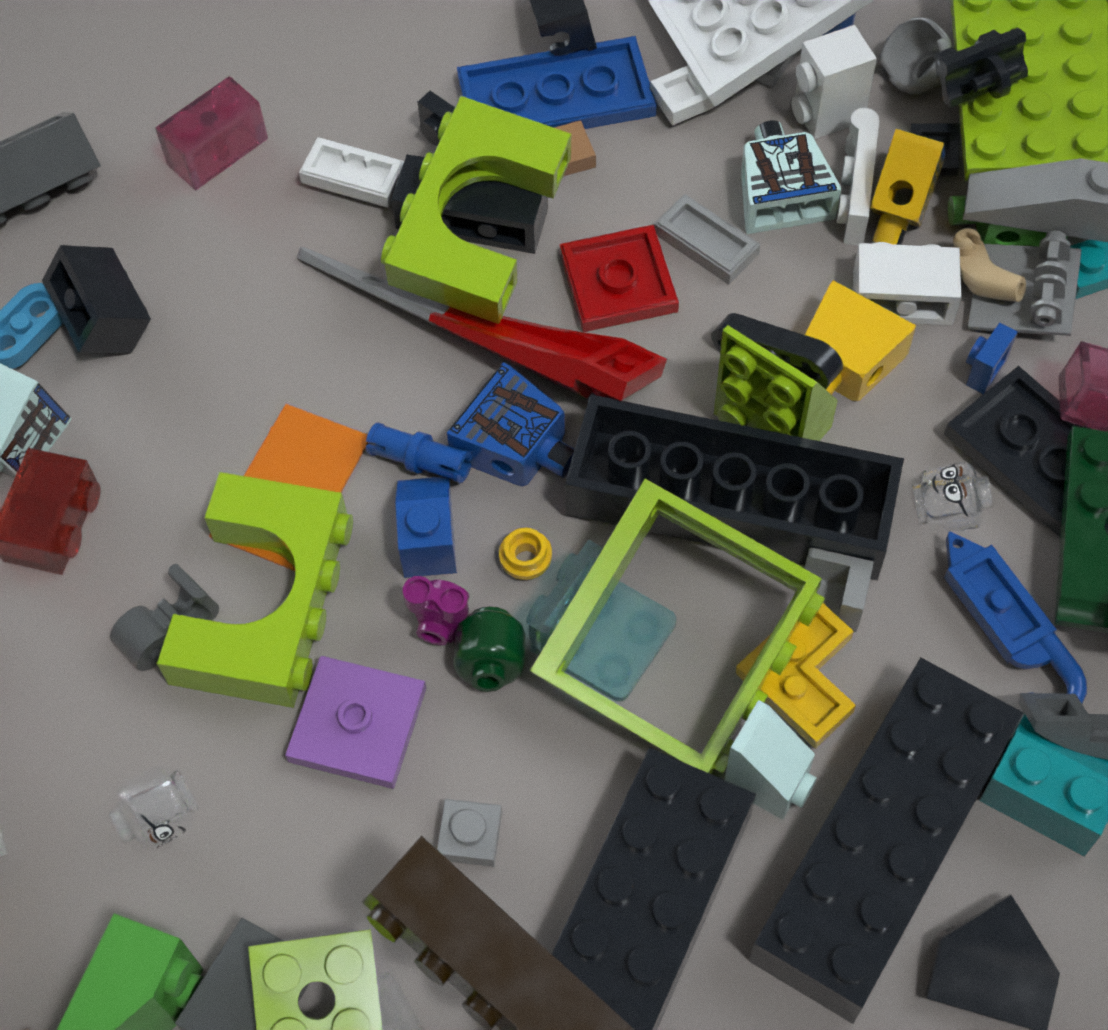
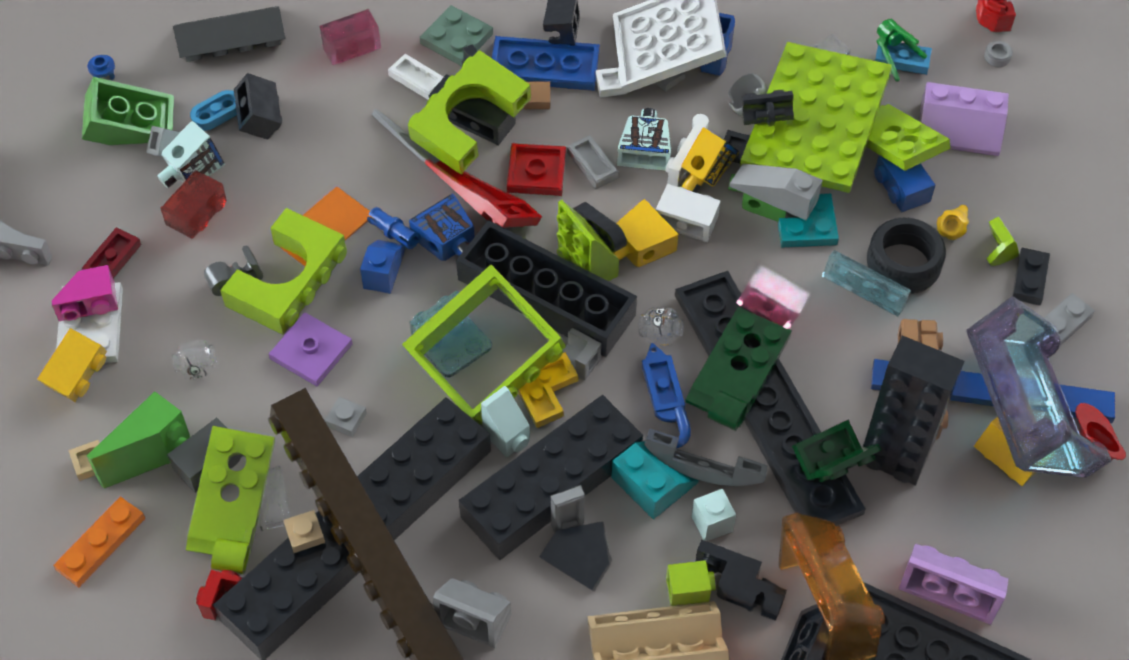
camera: 15 degrees right, 5 degrees down
(386, 82) = (454, 32): none -> sand green plate
(437, 607) = (370, 304): magenta plate -> none
(489, 647) = (390, 331): dark green head -> none
(525, 540) = (428, 286): yellow plate -> none
(832, 80) = (691, 94): white brick -> none
(952, 897) = (567, 509): none -> light grey tile
(981, 274) = (729, 216): tan arm -> none
(989, 357) = (715, 261): blue plate -> none
(1050, 288) = (752, 232): light grey hinge -> none

